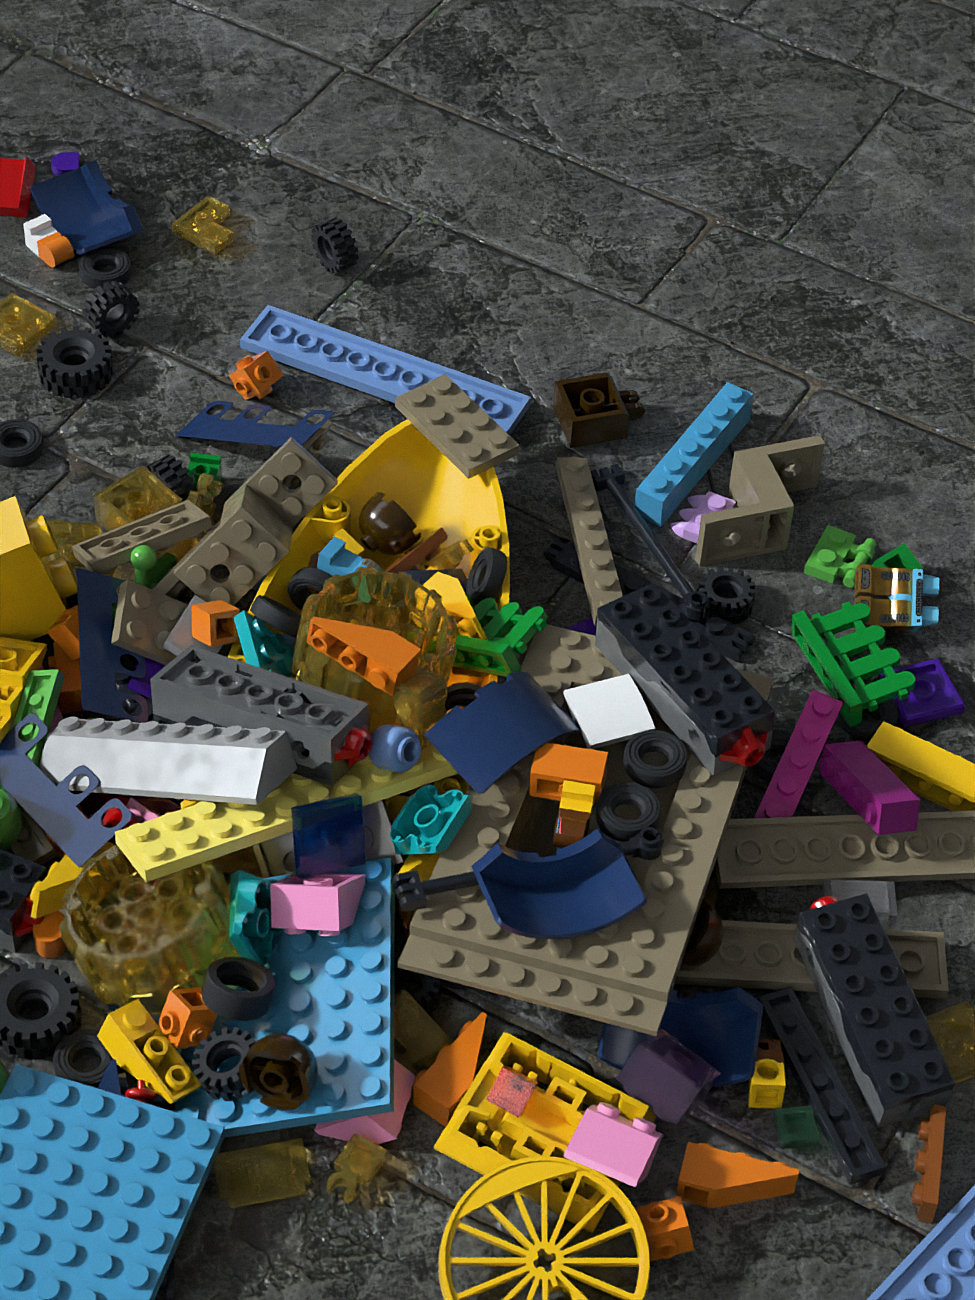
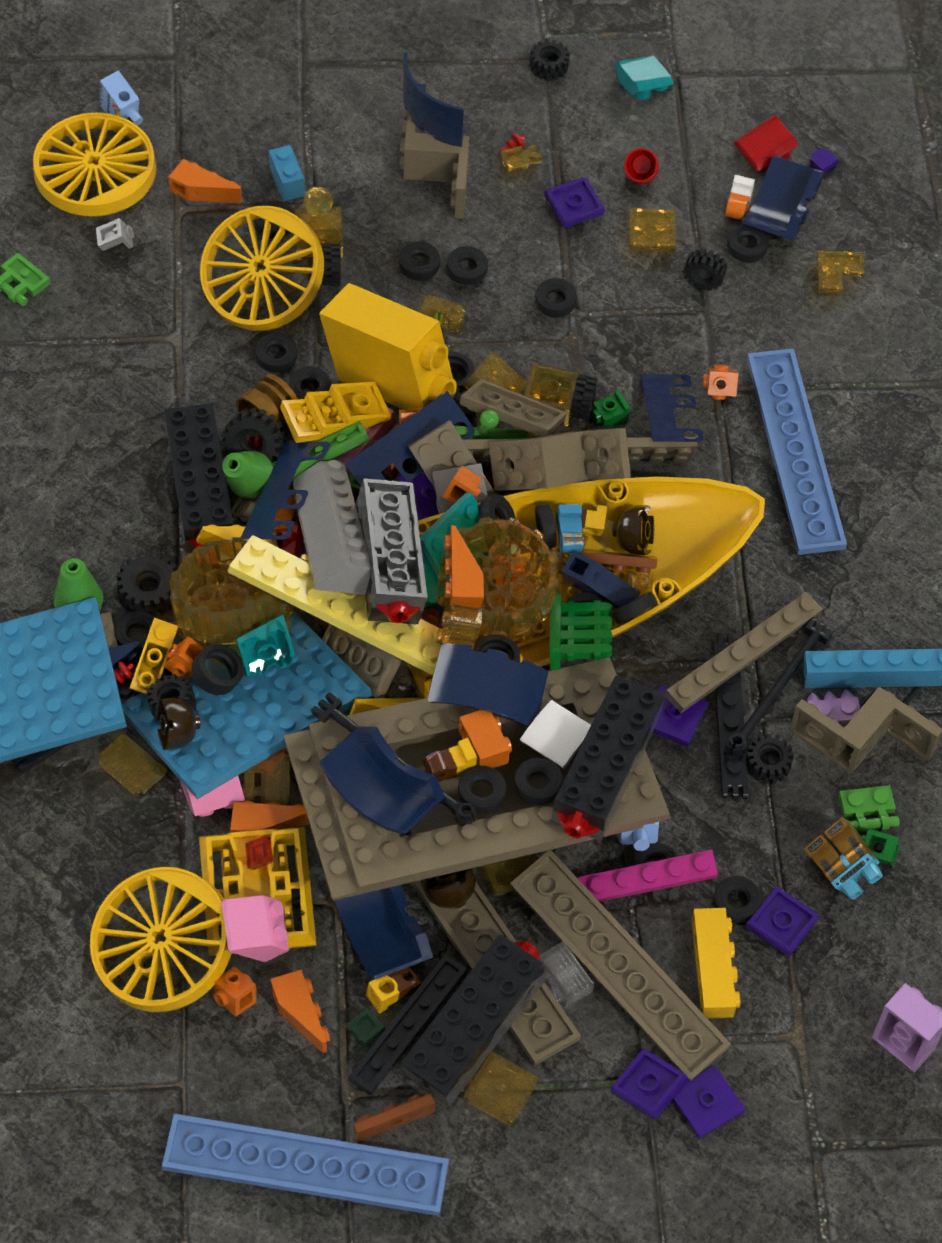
camera: 55 degrees right, 10 degrees up
(74, 347) = (652, 269): black tyre -> none
(206, 492) = (581, 421): clear yellow plate -> none
(316, 903) = (306, 669): bright pink slope -> none
(328, 835) = (344, 644): clear blue tile -> none
(334, 245) = (879, 349): black tyre -> none
(355, 1164) = (168, 808): clear yellow plate -> none
(394, 748) = (422, 634): medium blue head -> none
(429, 821) = (396, 688): teal slope -> none
(456, 604) = (583, 604): yellow slope -> none
(457, 426) = (745, 513): dark tan plate -> none
(594, 410) = (866, 586): dark brown hinge -> none
(667, 1077) = (337, 932): clear purple brick -> none
(839, 679) = (754, 841): green fence -> none
(870, 787) = (653, 926): magenta brick -> none

